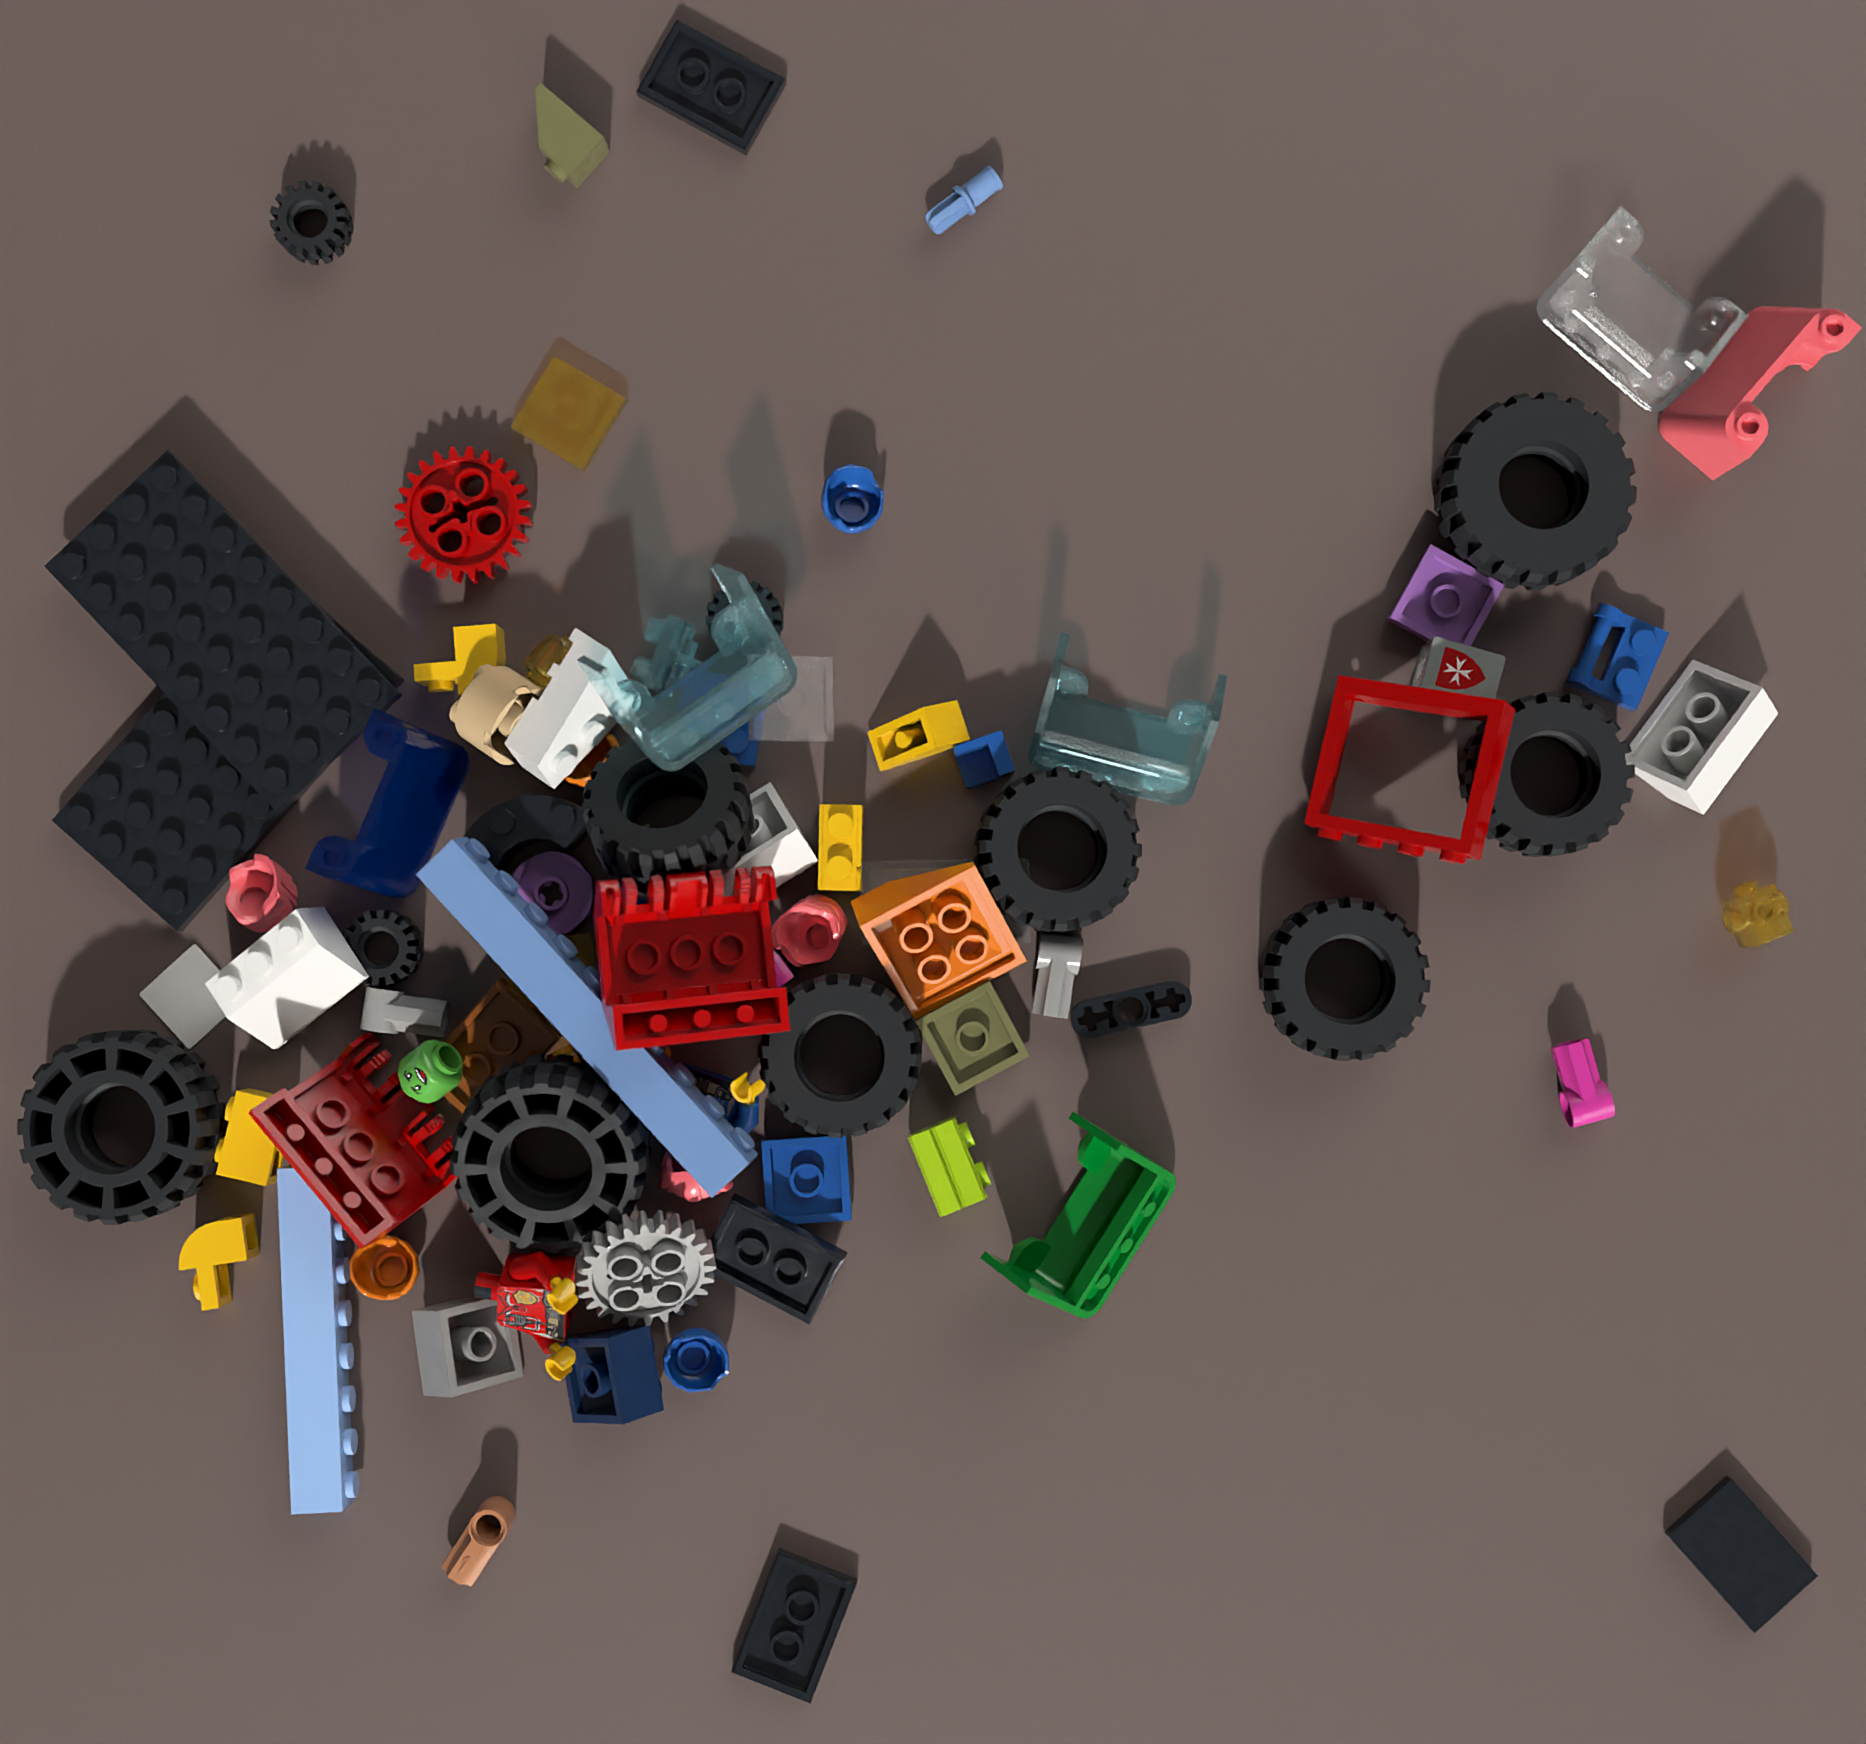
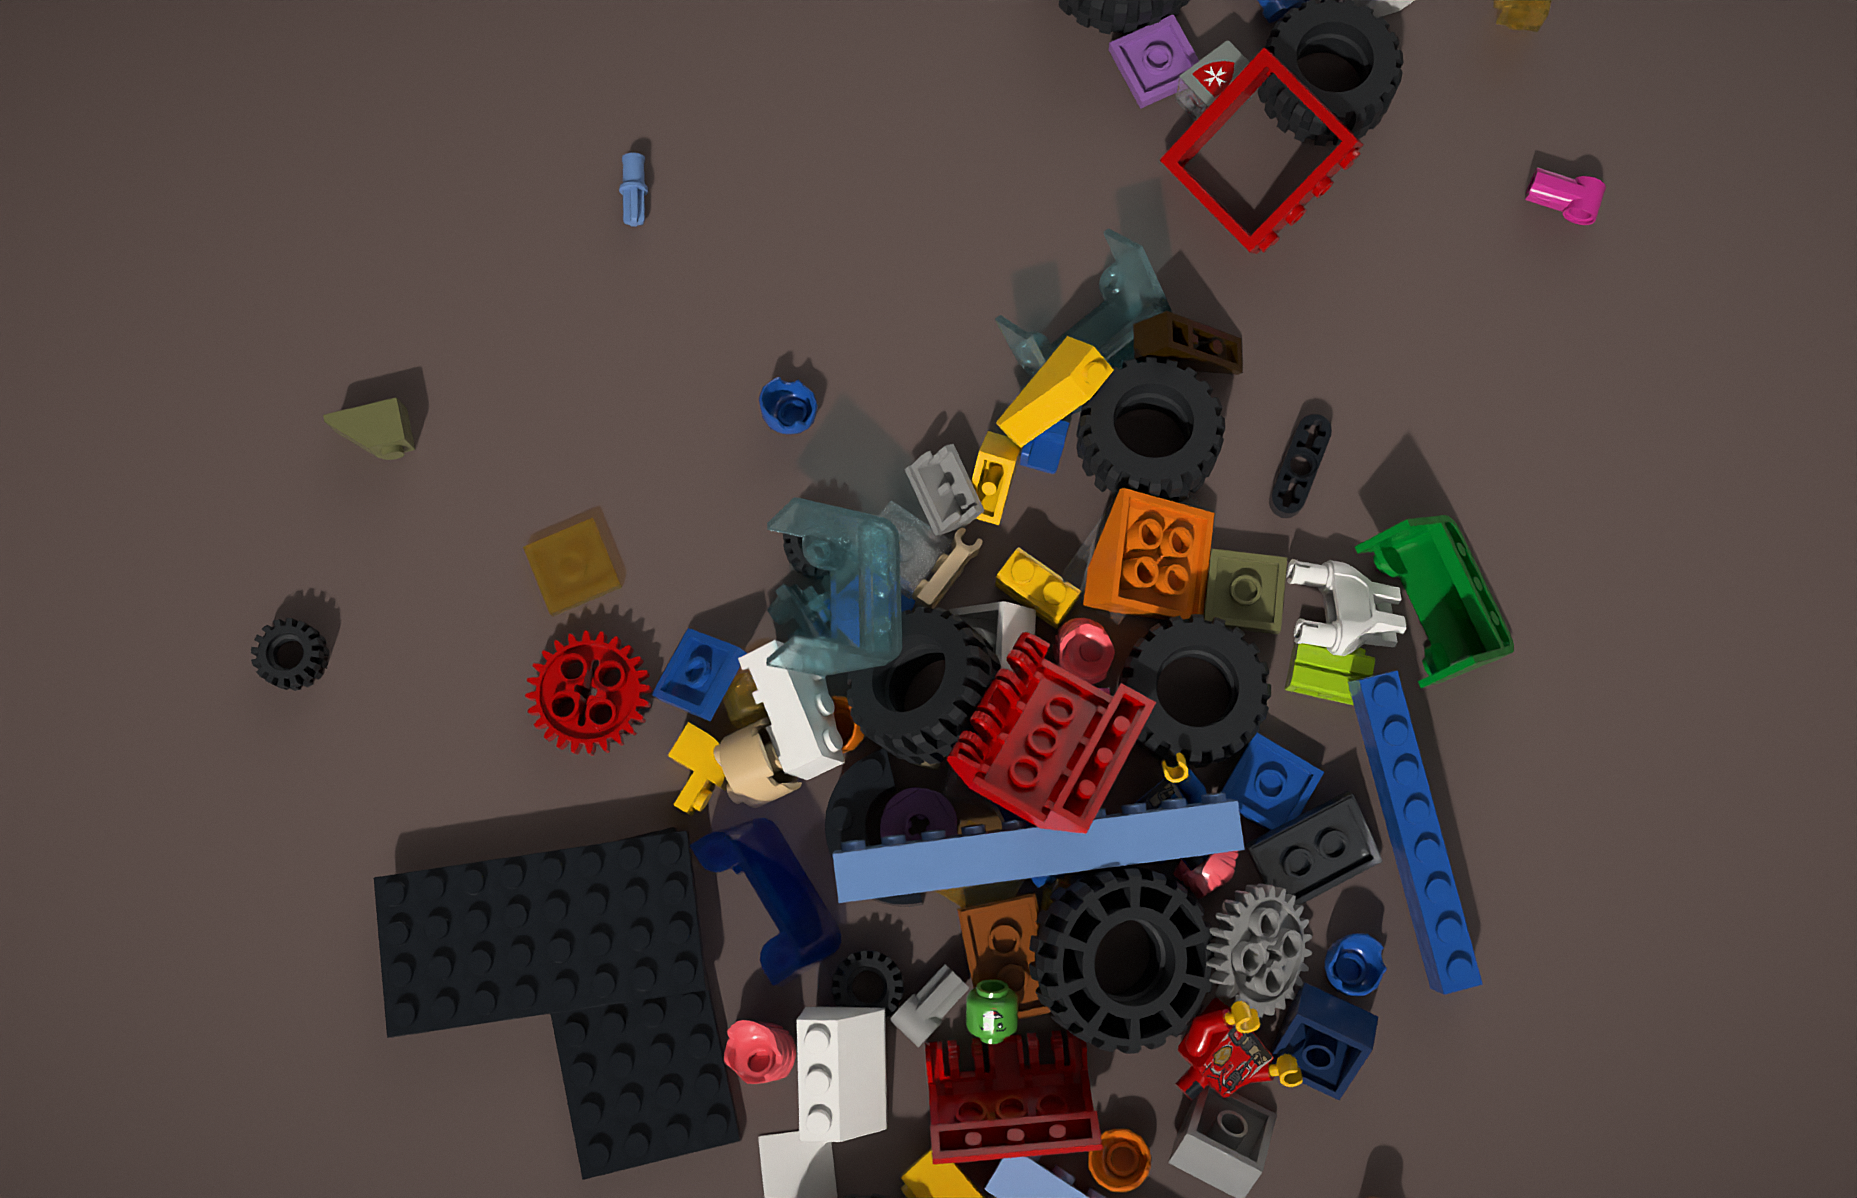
camera: 55 degrees left, 10 degrees down
(546, 601) = (699, 674): none -> blue plate
(711, 87) = (419, 306): black tile -> none
(794, 1625) = (1613, 1037): black tile -> none
(799, 755) = (945, 572): none -> tan plate
(848, 1335) = (1415, 833): none -> blue brick
(872, 699) = (944, 490): none -> light grey hinge
(1018, 1144) = (1354, 608): none -> white connector
(1030, 738) = (1055, 391): none -> yellow slope
(1057, 964) = (1230, 492): light grey piece -> none
(1168, 828) = (1188, 344): none -> dark brown slope
(1399, 991) = (1403, 260): black tyre -> none

